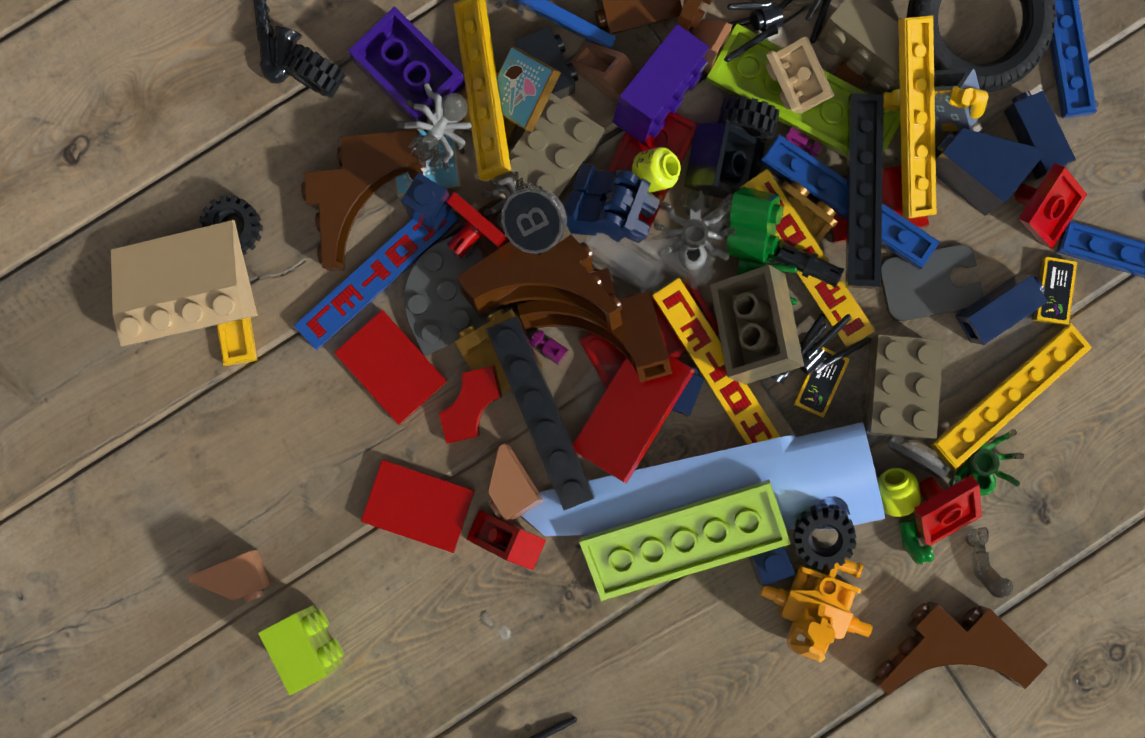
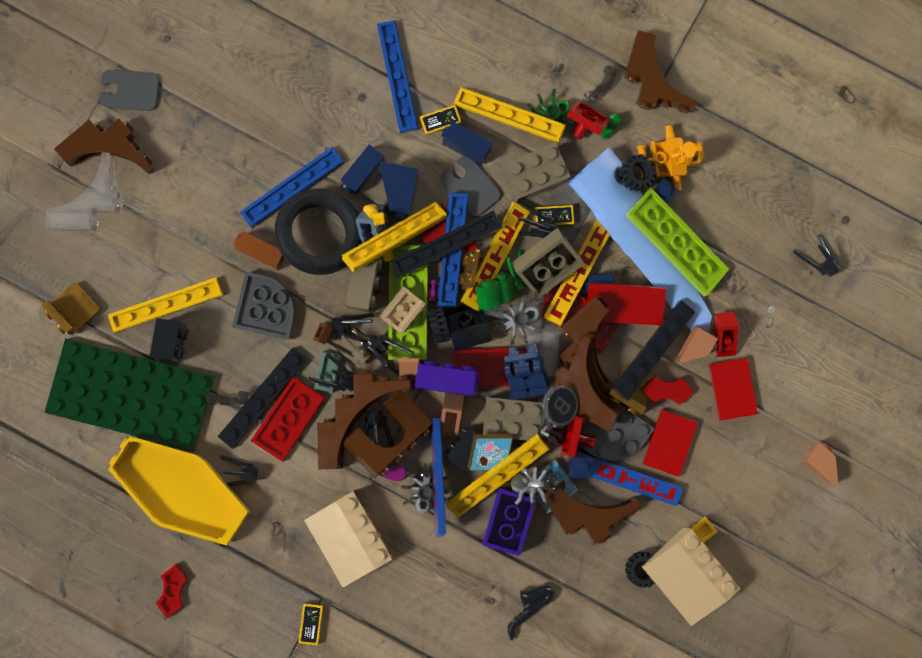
camera: 120 degrees left, 0 degrees up
(302, 648) = (839, 405): lime brick -> none
(313, 70) = (538, 570): black tyre -> none
(550, 348) = (614, 364): magenta piece -> none
(658, 167) = (493, 358): neon yellow head -> none
(810, 264) = (500, 252): black pin -> none
(899, 492) = (591, 147): neon yellow head -> none
(919, 457) = (569, 146): clear tile -> none
(1051, 205) = (400, 145): red tile -> none

